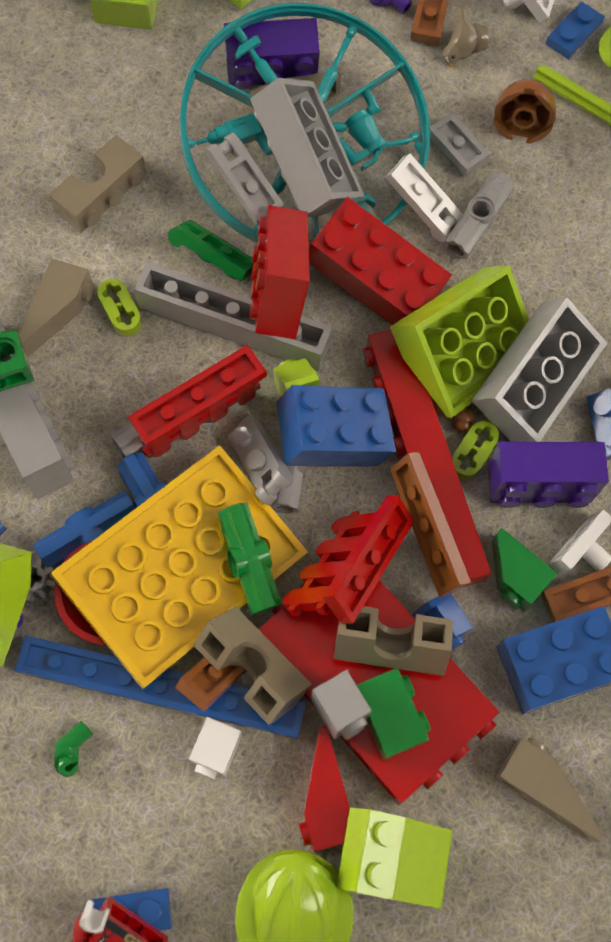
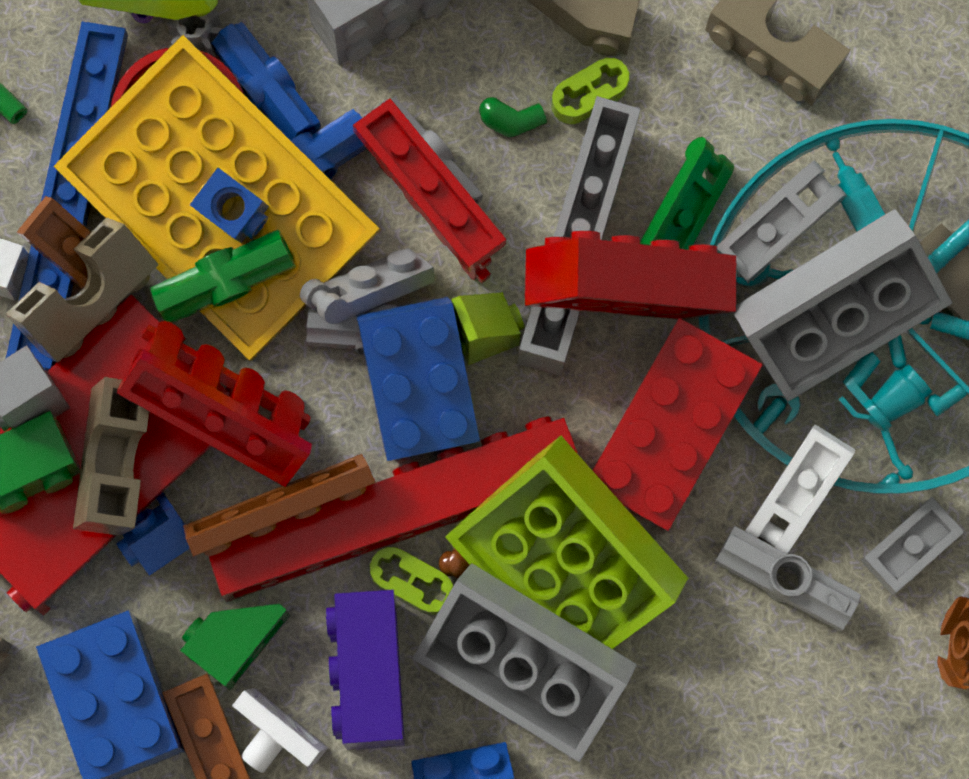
camera: 85 degrees right, 5 degrees up
(135, 363) = (509, 121): none -> green arm
(185, 555) = (212, 198): none -> blue brick

